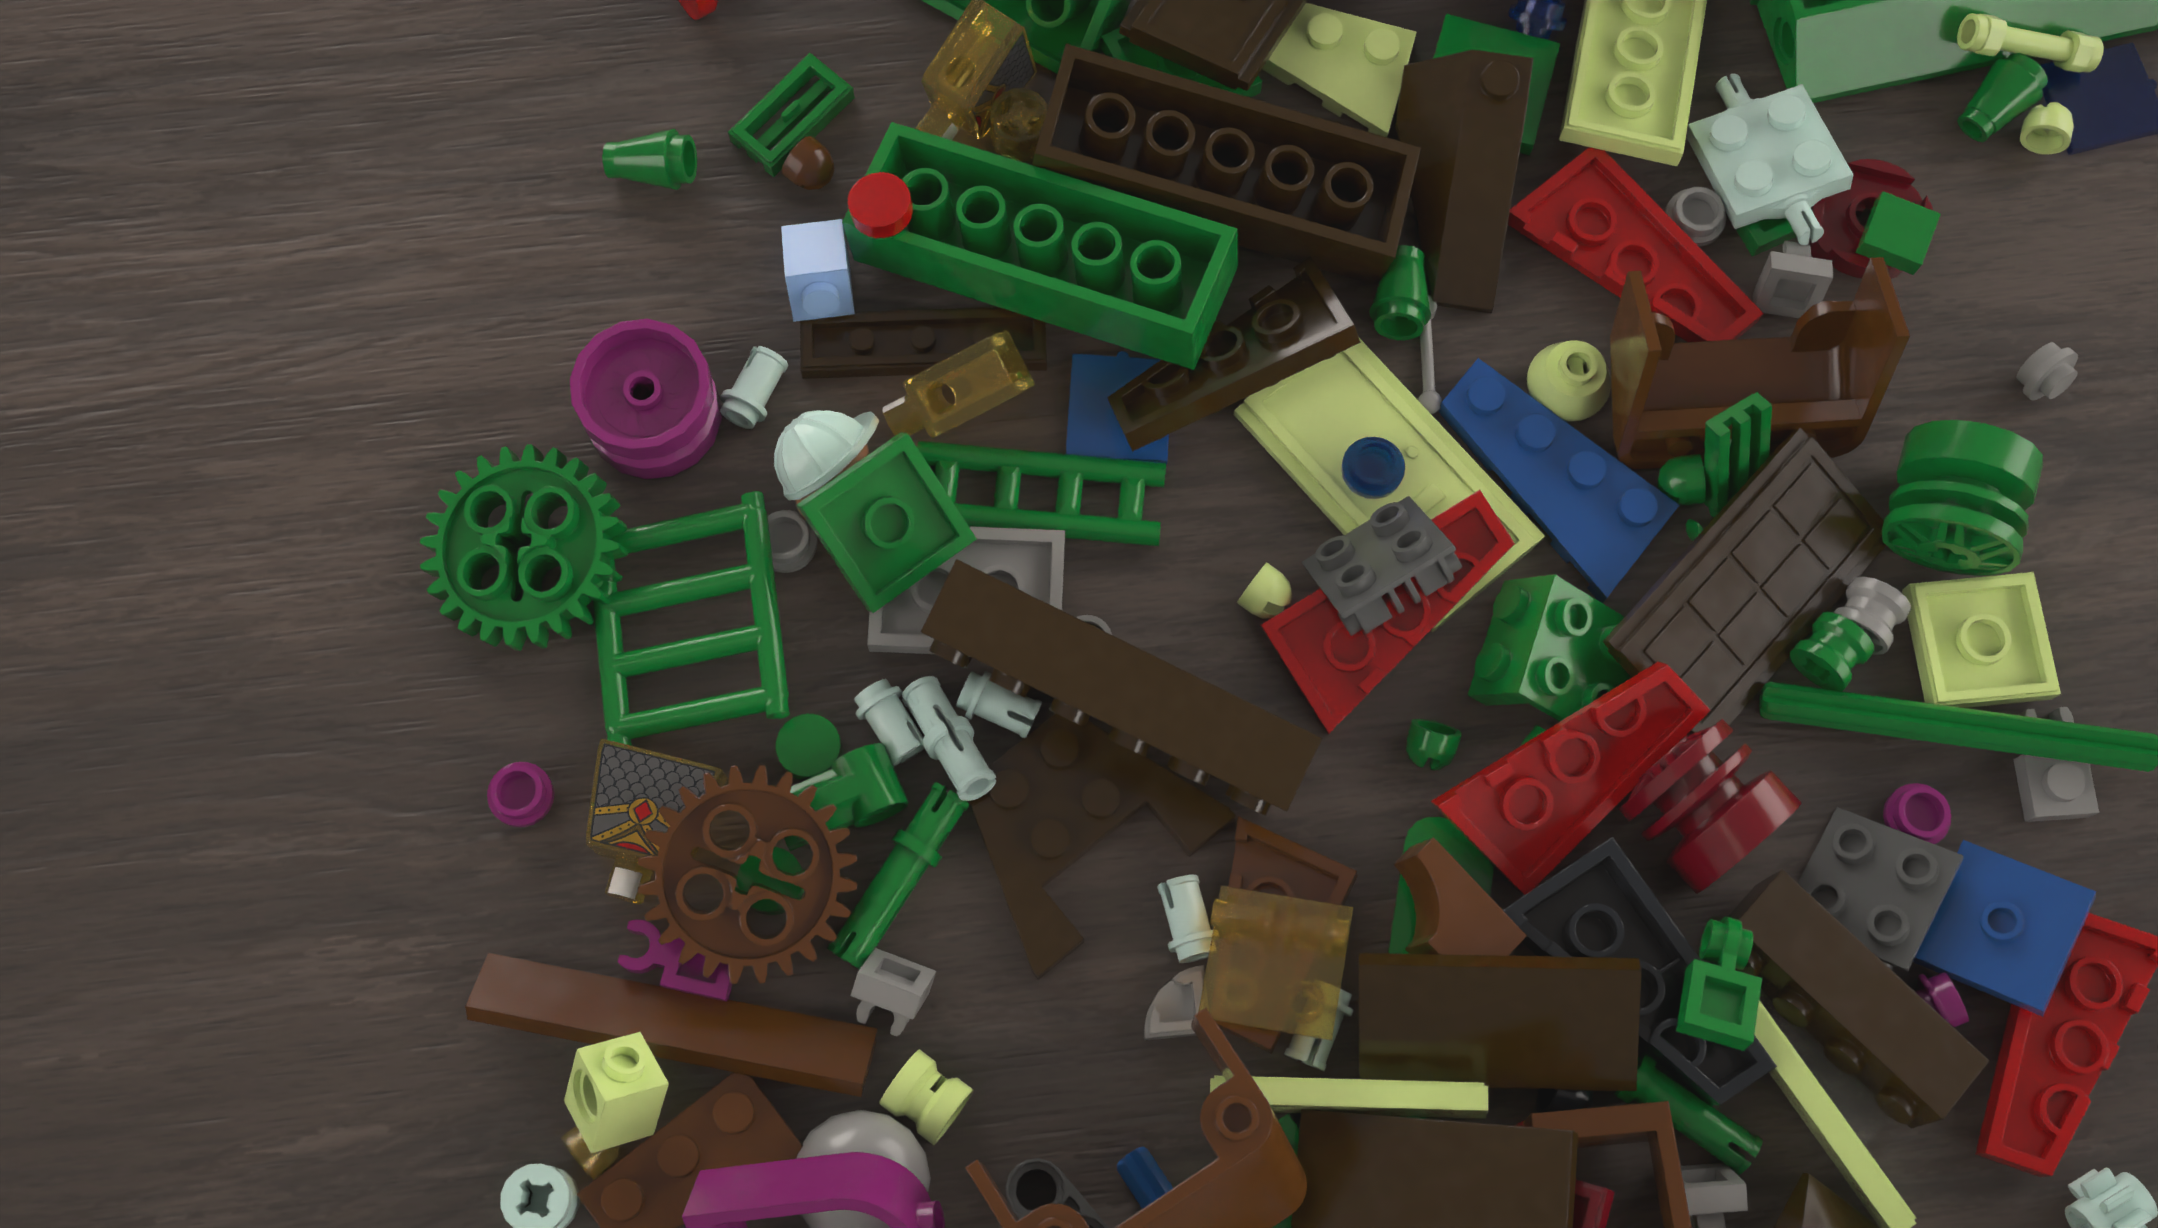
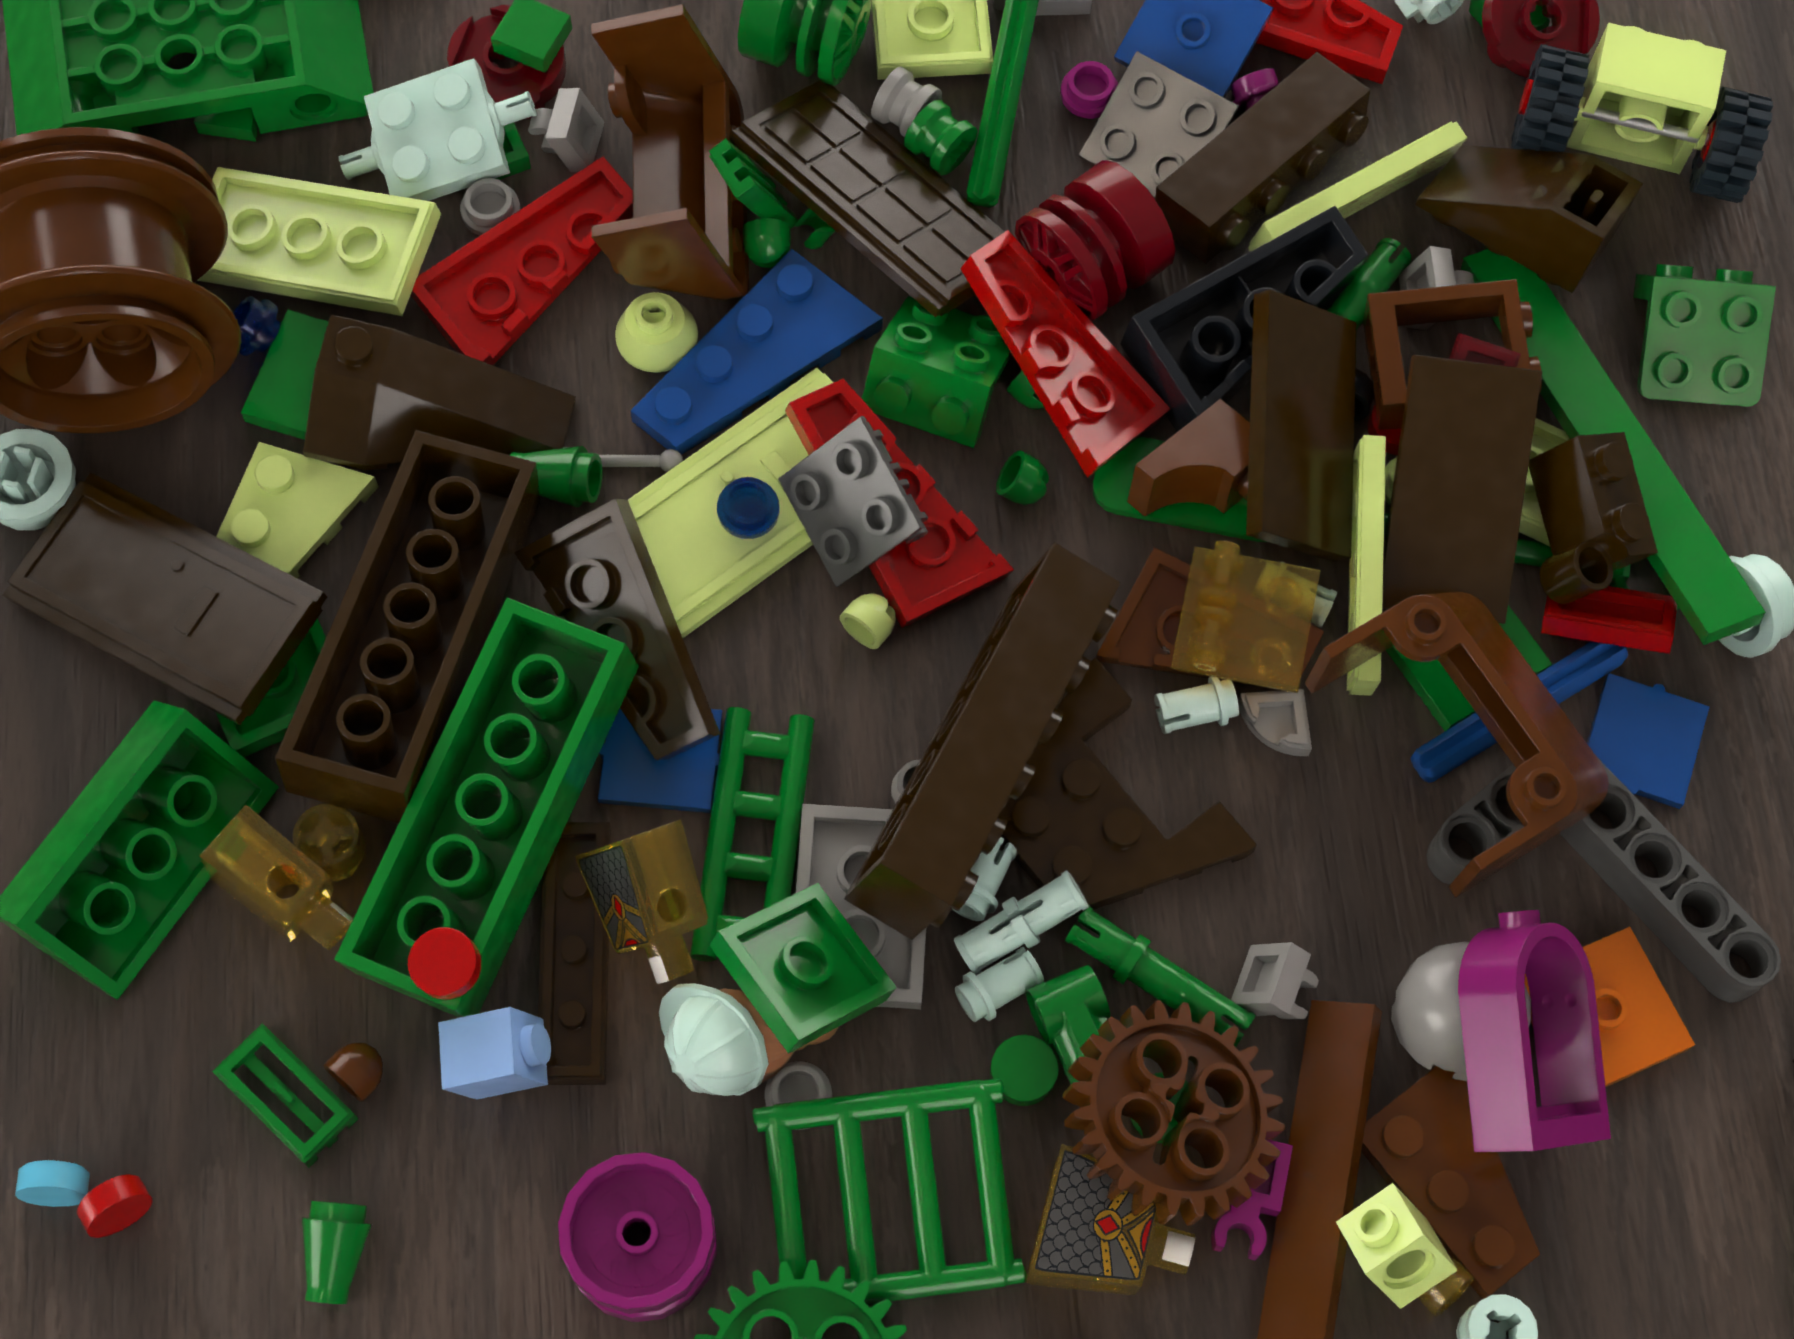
camera: 90 degrees left, 5 degrees down
(753, 388) = (619, 1127): light aqua pin -> none
(926, 1097) = (1379, 949): yellowish green wheel -> none
(1715, 997) = (1284, 239): green plate -> none

